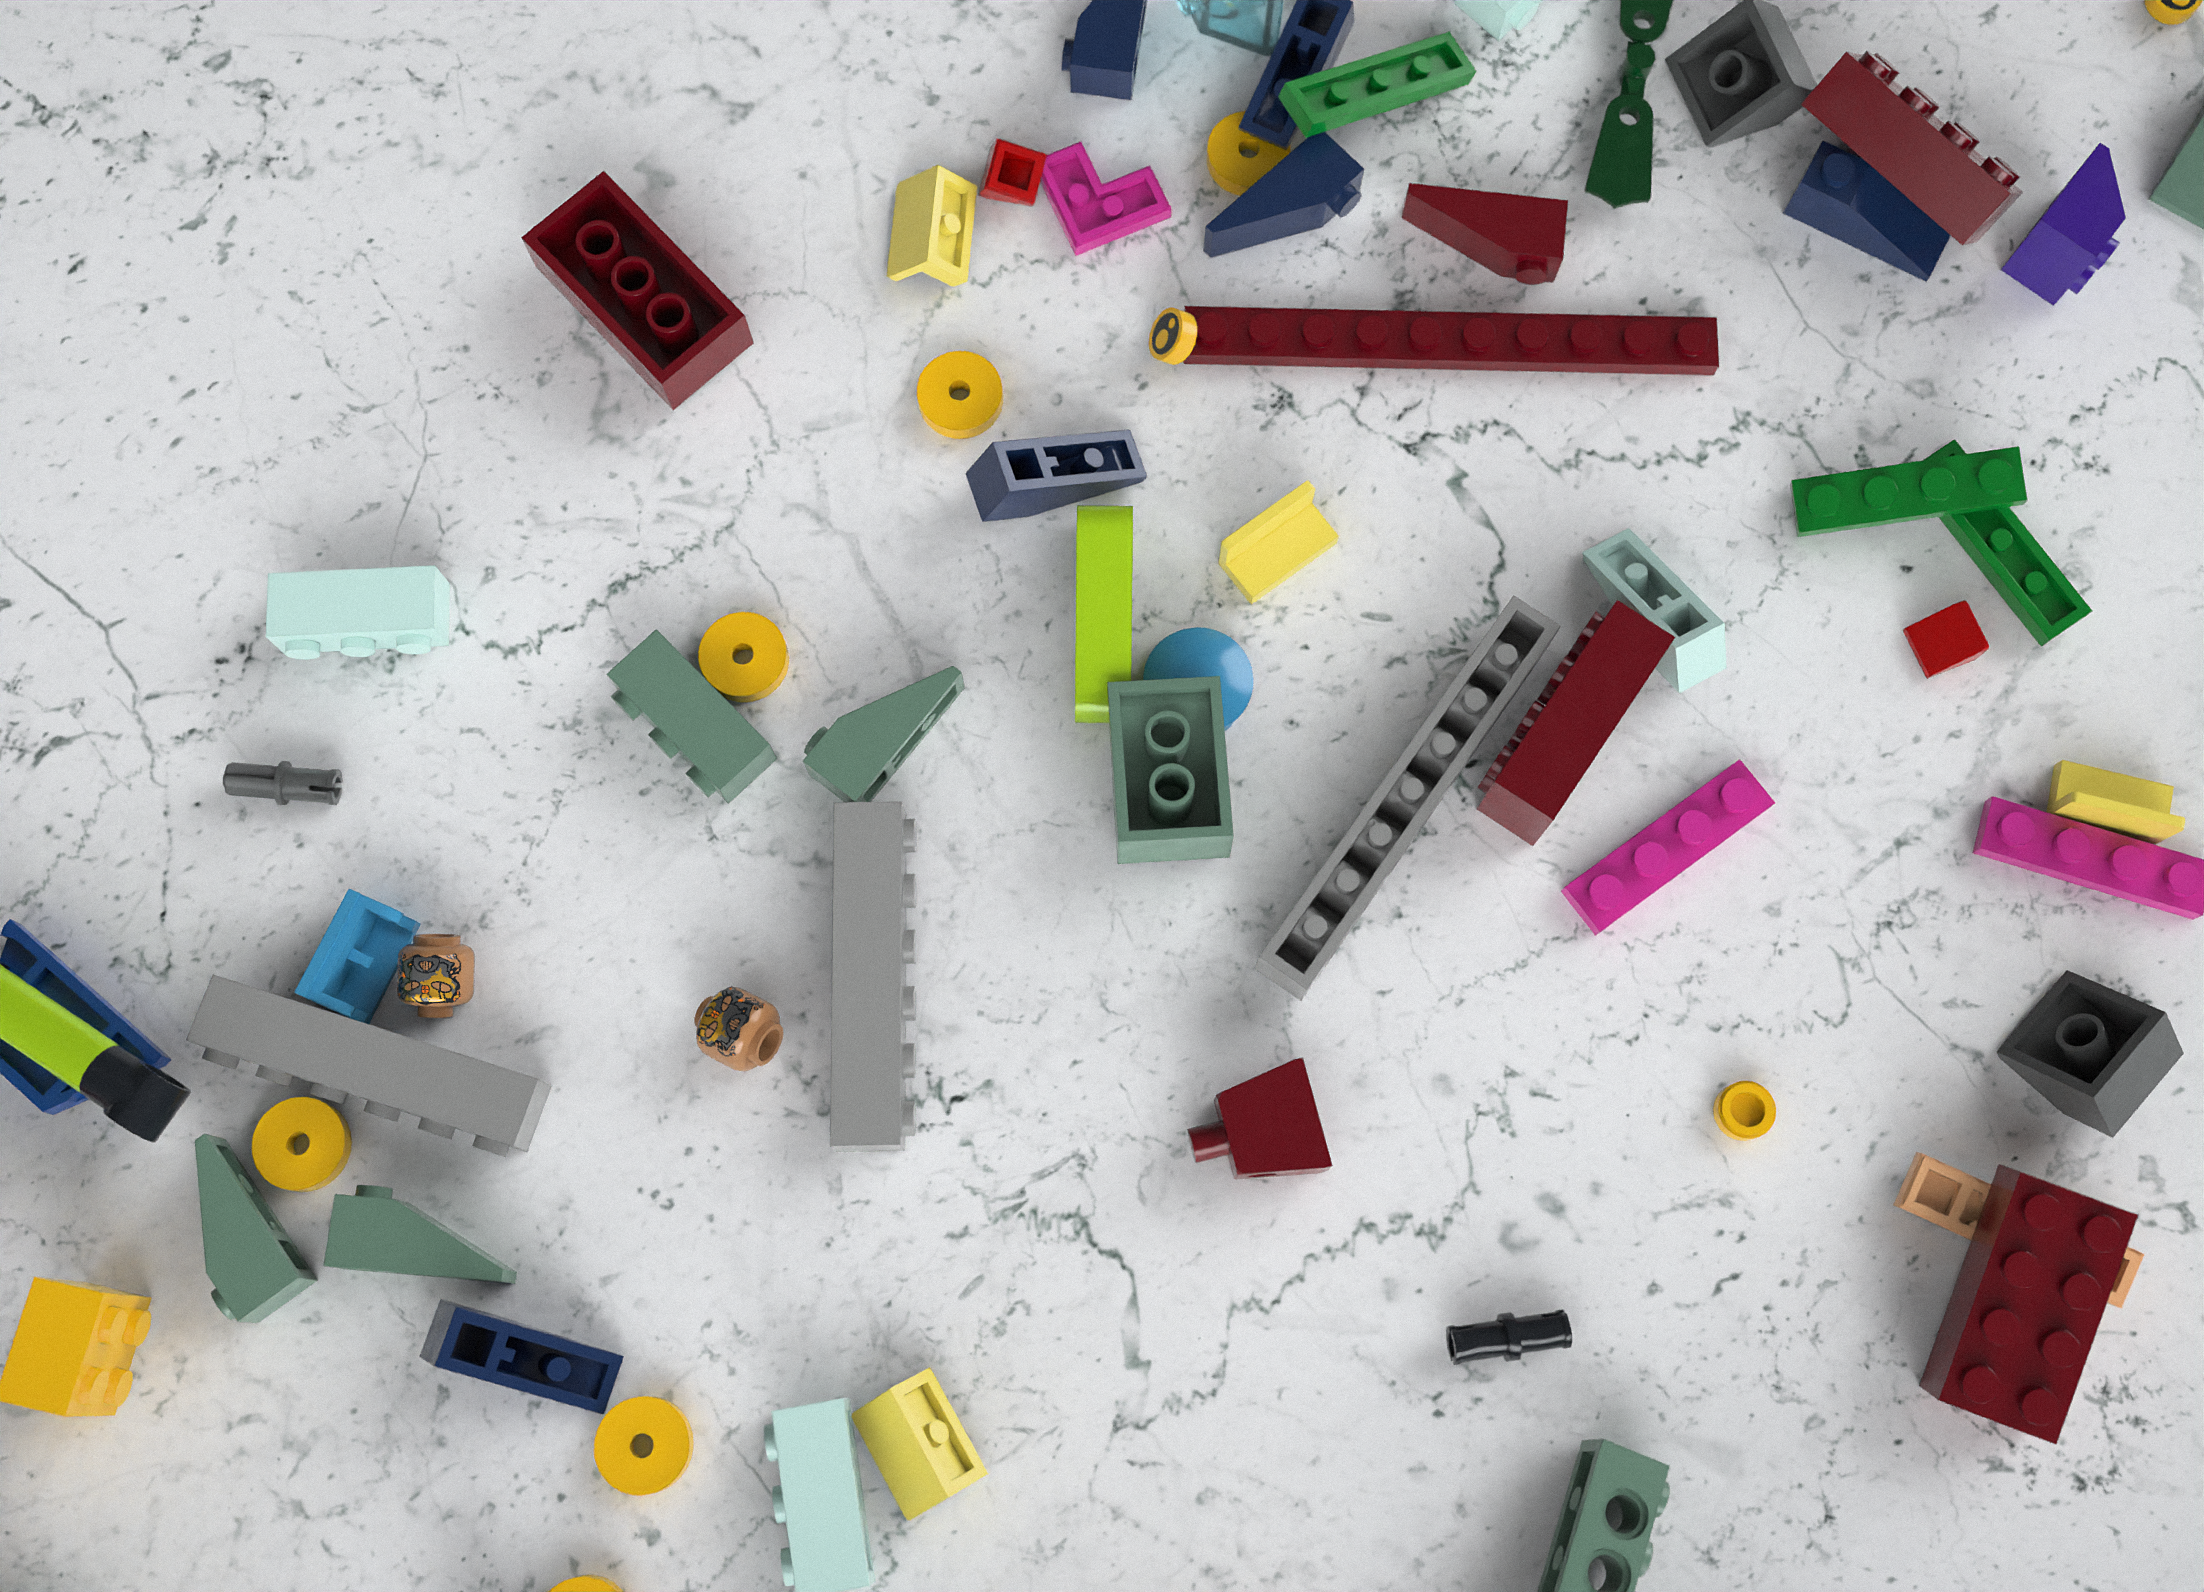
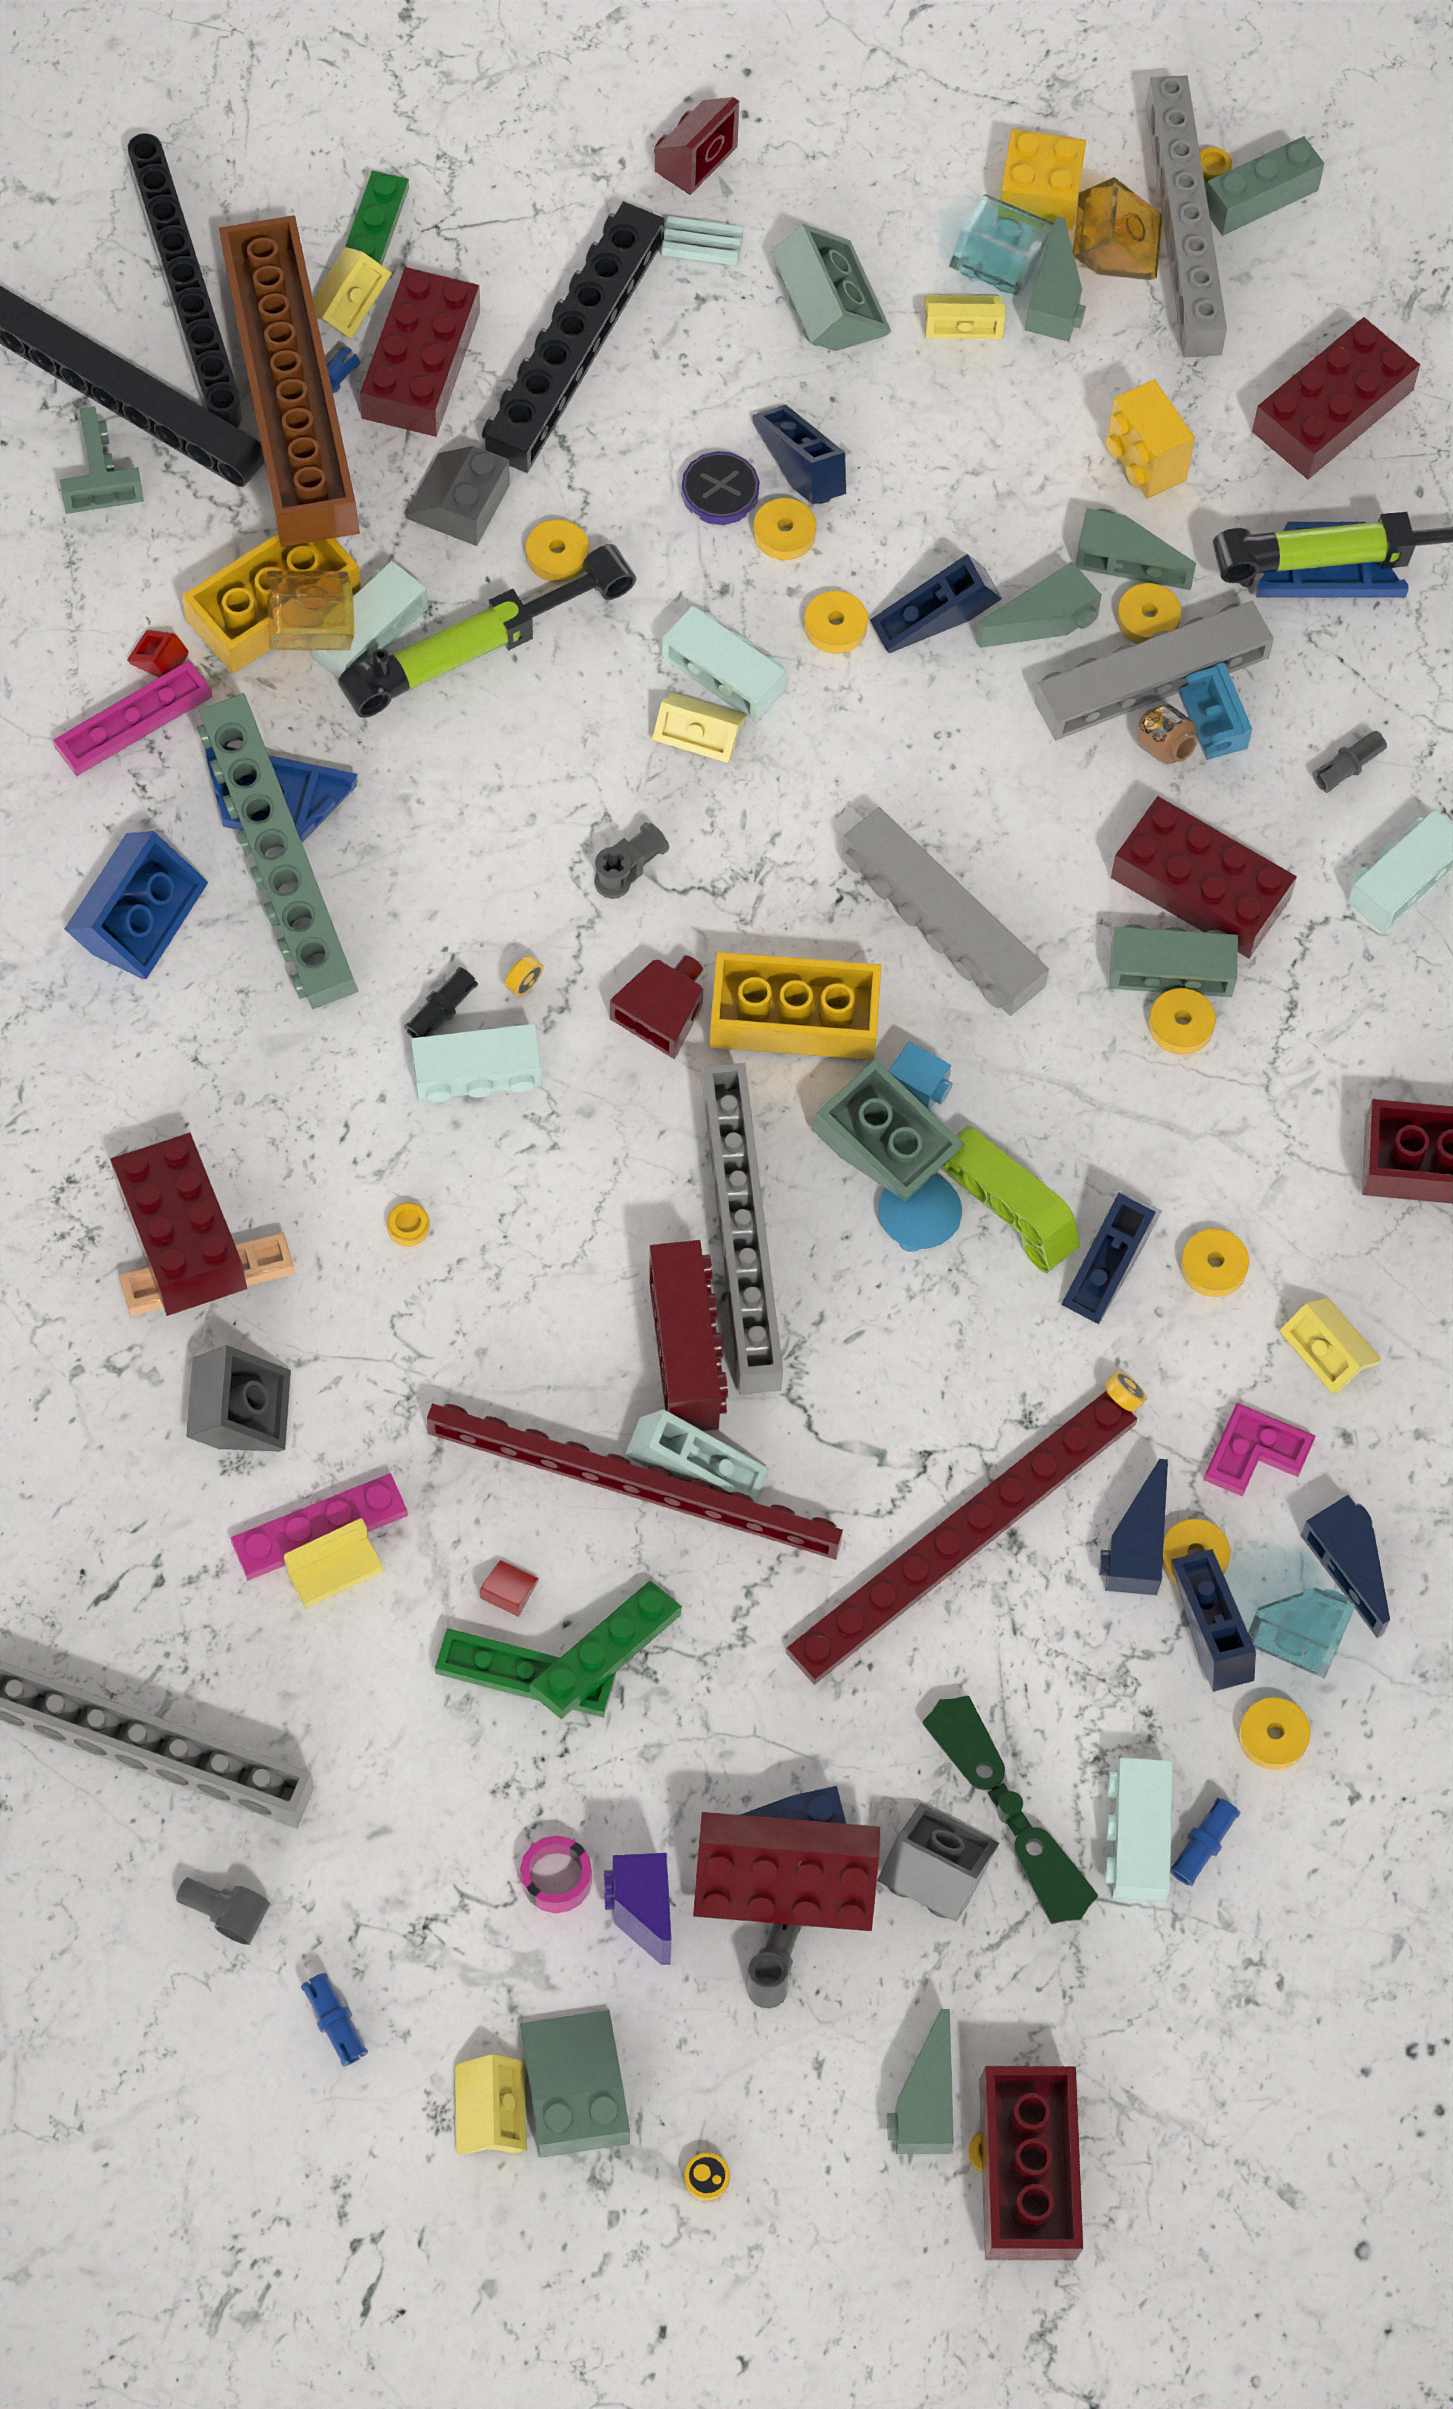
camera: 135 degrees right, 10 degrees down
(568, 779) = (1202, 875): none -> dark red brick
(738, 1029) = (985, 831): head -> none
(873, 742) = (1063, 1021): sand green slope -> none
(1012, 173) = (1318, 1414): red slope -> none
(1072, 811) = (922, 1074): none -> dark azure brick
(1133, 992) = (795, 1006): none -> yellow brick
(1145, 1336) = (624, 862): none -> dark grey connector
(1276, 544) = (946, 1322): light yellow panel -> none
(1376, 84) = (1153, 1642): green plate -> none
(1389, 1292) = (523, 975): none -> yellow tile
(1500, 231) = (994, 1620): dark red slope -> none
(1530, 1228) = (476, 1063): none -> light aqua brick
(1667, 847) = (571, 1335): dark pink plate -> none
(1748, 654) = (648, 1484): none -> dark red plate
(1974, 109) = (772, 1962): none -> dark grey pin
(2139, 320) = (560, 1902): none -> dark pink piece

